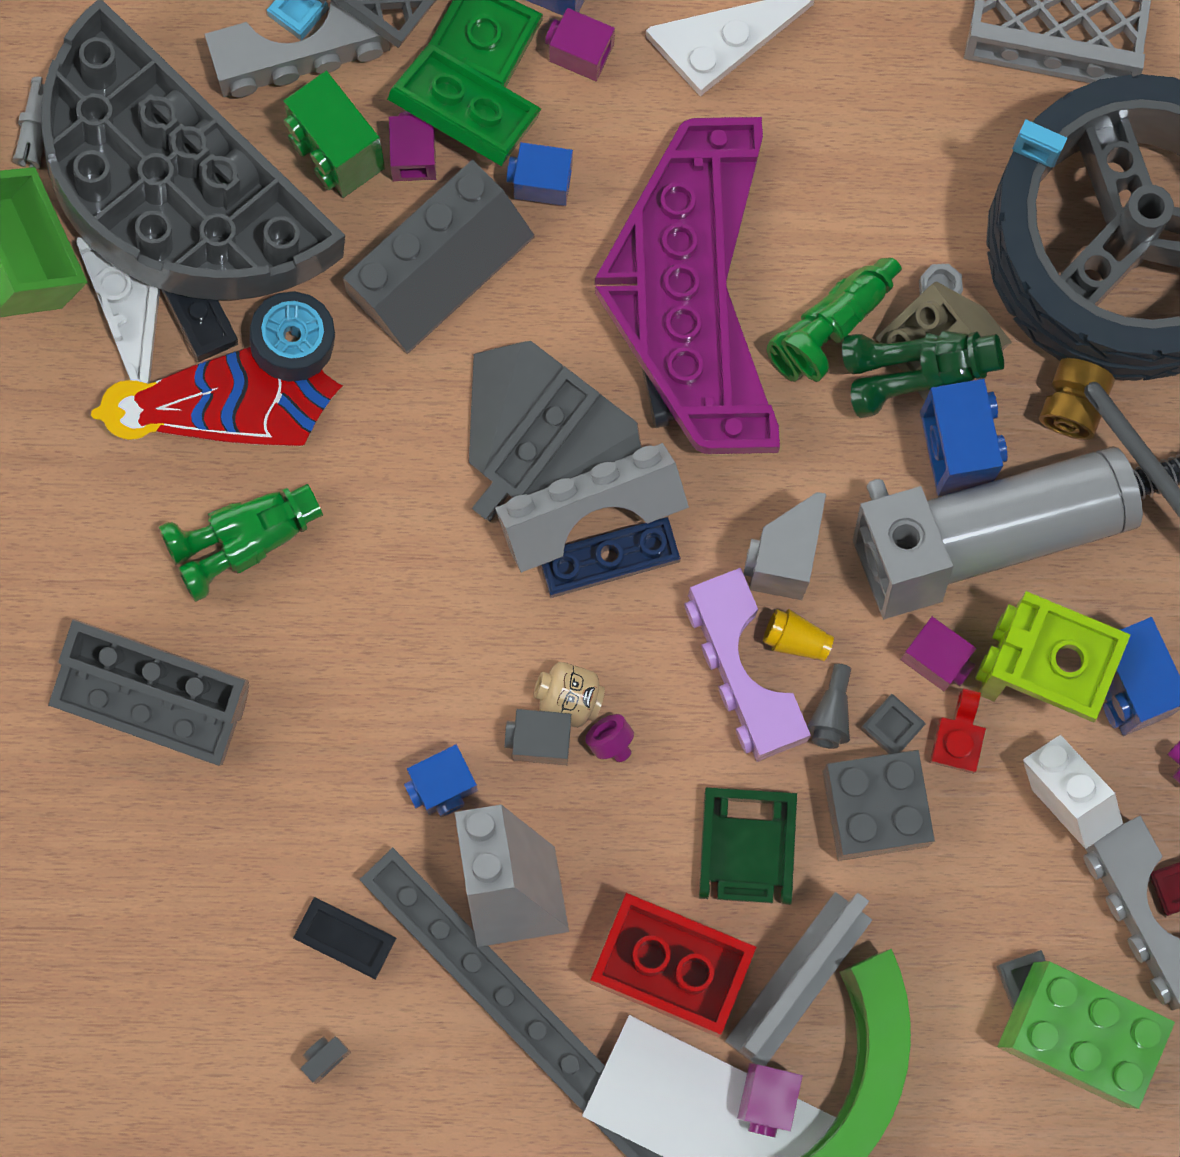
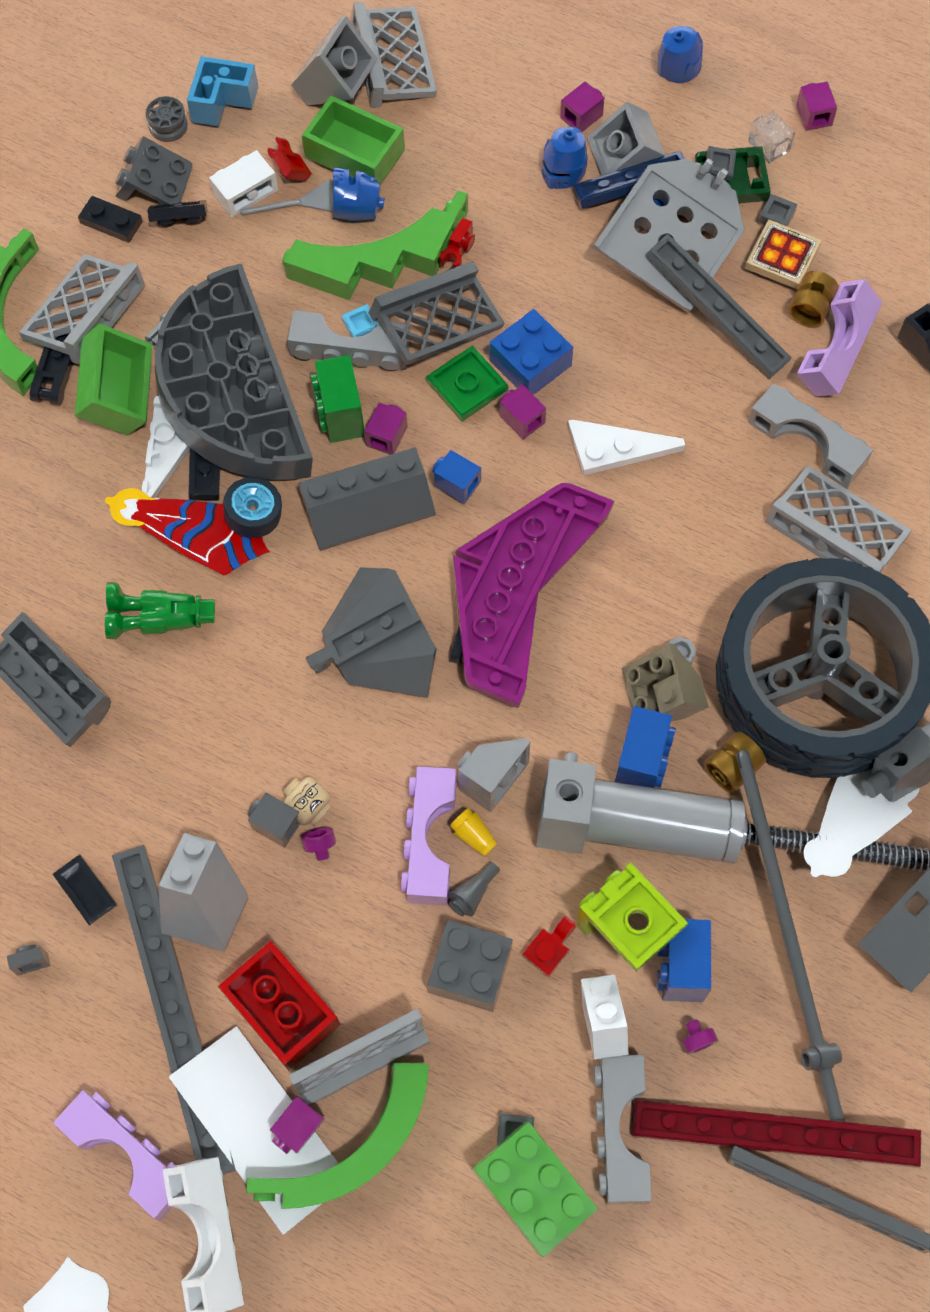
camera: 30 degrees right, 10 degrees down
(441, 782) = (197, 817): blue brick -> none
(464, 104) = (430, 415): green tile -> none
(541, 521) = (419, 688): light grey arch -> none
(637, 548) = (399, 730): dark blue tile -> none
(746, 853) = (369, 959): dark green container -> none
(851, 300) = (618, 635): green piece -> none
(893, 725) = (509, 919): dark grey tile -> none
(940, 655) = (561, 886): magenta brick -> none
(942, 357) = (651, 691): dark green piece -> none
(1039, 143) = (776, 578): medium azure tile -> none

